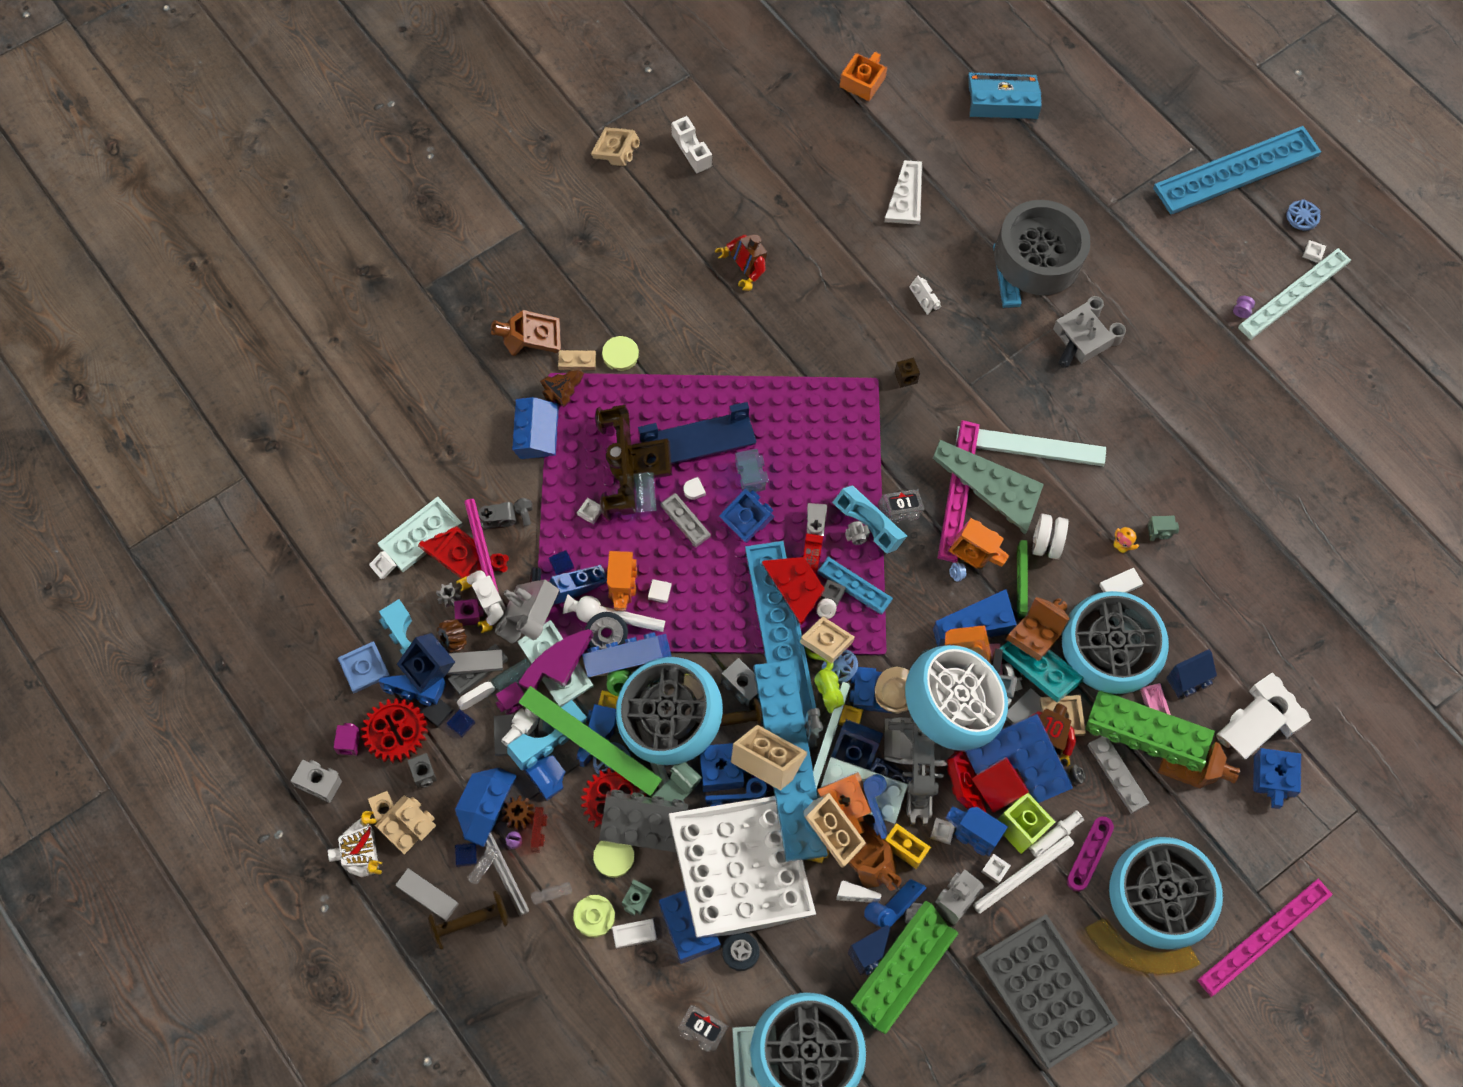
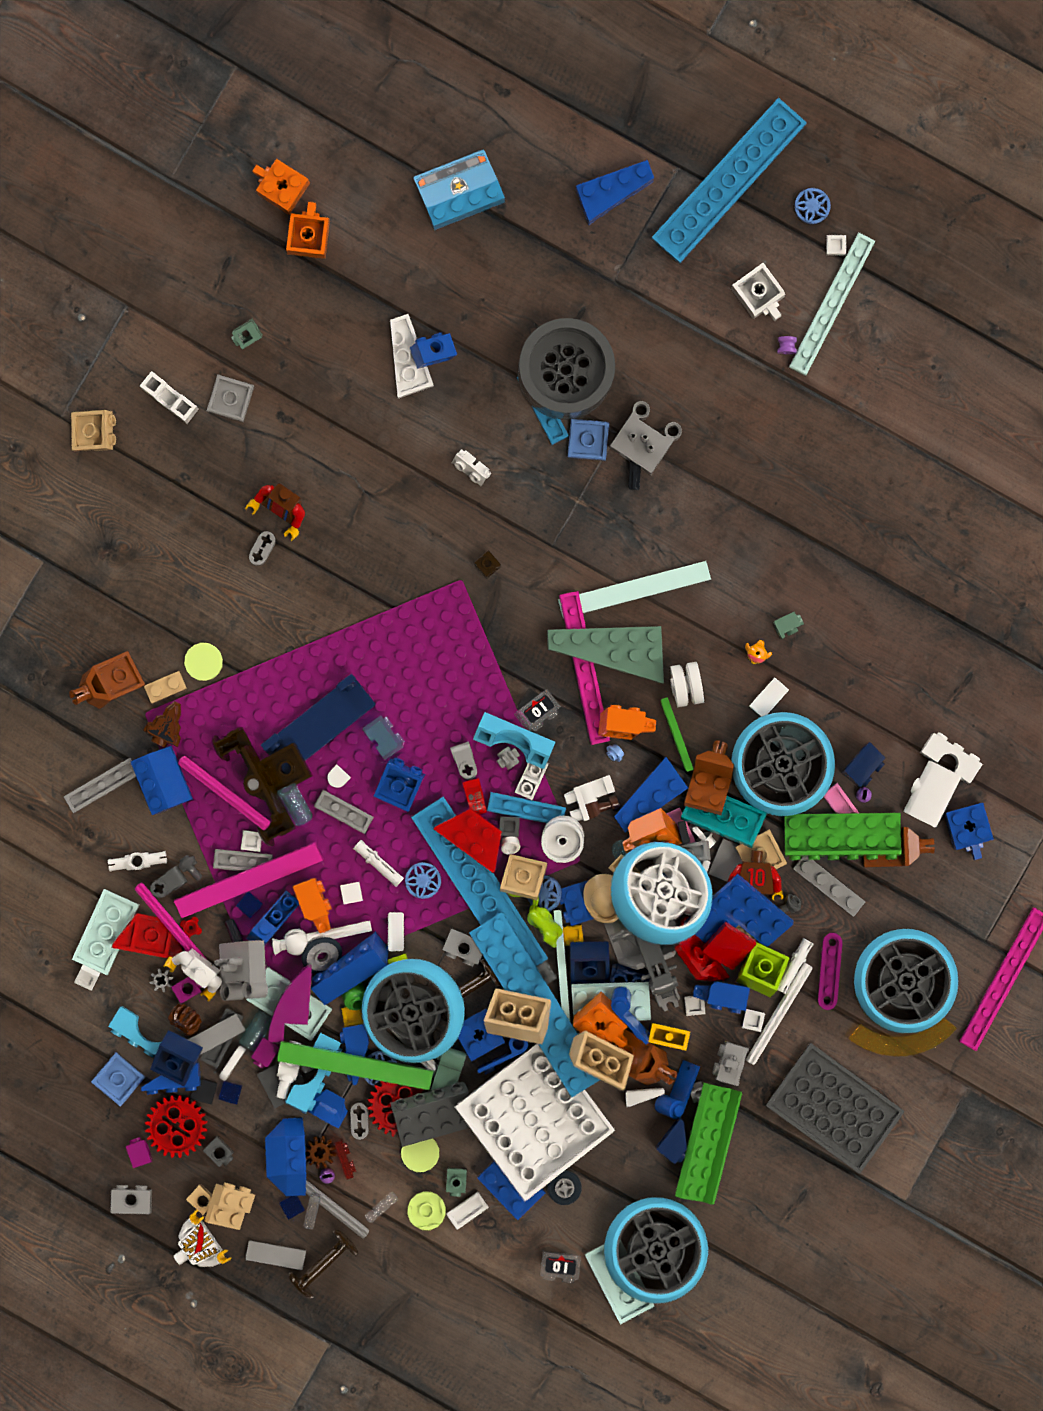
camera: 20 degrees left, 20 degrees up
(472, 482) = (147, 860): none -> white pin
(479, 413) = (100, 786): none -> light grey plate
(565, 798) = (364, 1121): none -> light grey beam
(571, 539) = (248, 880): none -> dark pink tile
(574, 524) = (238, 860): none -> light grey tile
(586, 456) = (223, 792): none -> dark pink axle
(685, 639) = (395, 931): none -> white slope
(694, 570) = (377, 862): none -> white pin
(715, 288) = (258, 545): none -> light grey beam
(731, 607) = (423, 880): none -> medium blue wheel
(742, 169) = (230, 398): none -> light grey tile
(779, 120) = (254, 334): none -> sand green brick
(857, 35) = (279, 175): none -> orange hinge
(870, 561) = (530, 781): none -> white slope
(872, 610) = (559, 828): none -> white wheel
(916, 598) = (587, 801): none -> white hips
(931, 193) = (424, 356): none -> blue brick
(1037, 314) = (588, 439): none -> medium blue tile
(1135, 137) = (611, 190): none -> blue wedge
(1178, 702) = (859, 794): none -> medium lavender hinge
(1234, 256) = (770, 295): none -> white hinge

